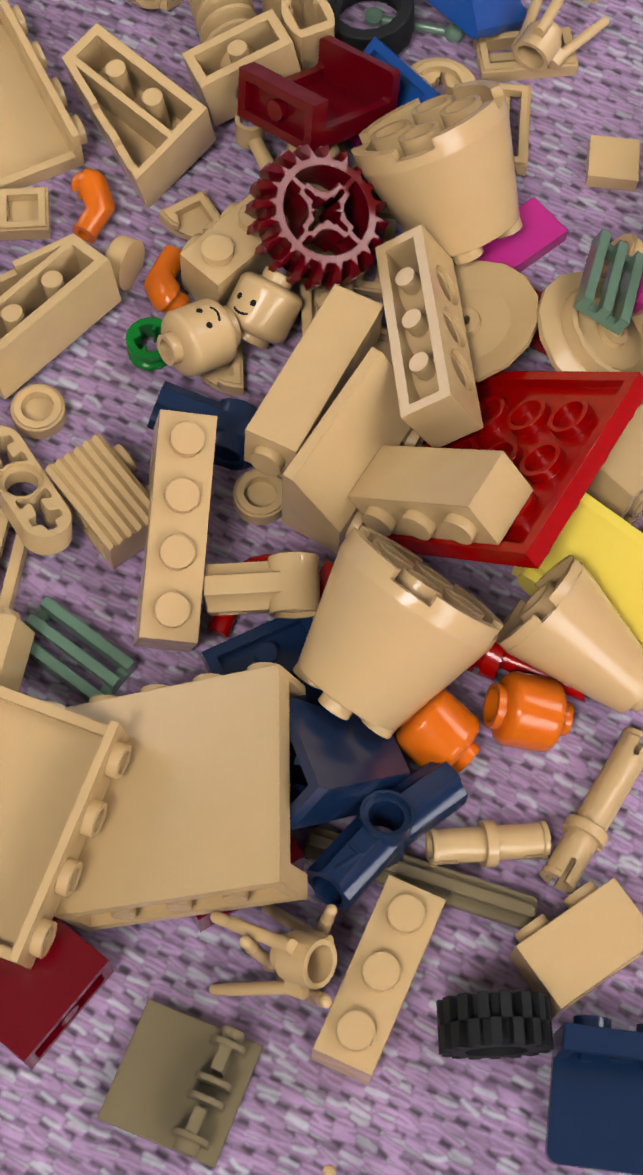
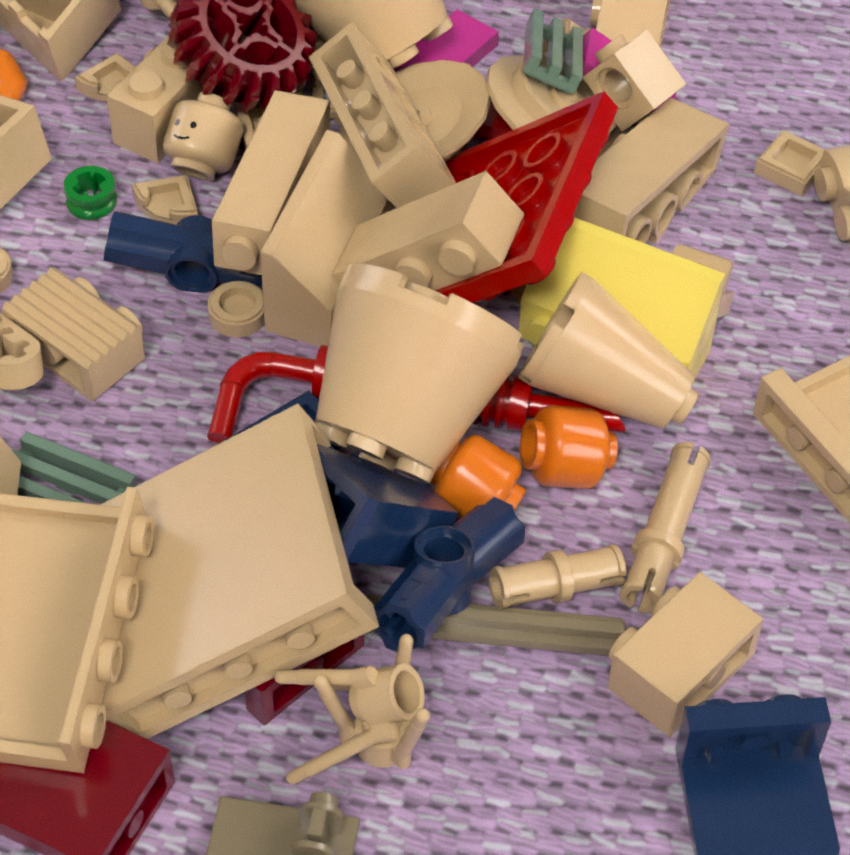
camera: 10 degrees left, 15 degrees down
(126, 259) = (53, 120): tan tile -> none
(161, 281) = (94, 141): orange arm -> none
(176, 531) = (161, 363): tan arch -> none
(199, 337) = (142, 167): tan head -> none
(282, 586) = (279, 368): tan piece -> none
(377, 980) = (471, 724): tan brick -> none
(494, 1025) = (609, 735): black tyre -> none

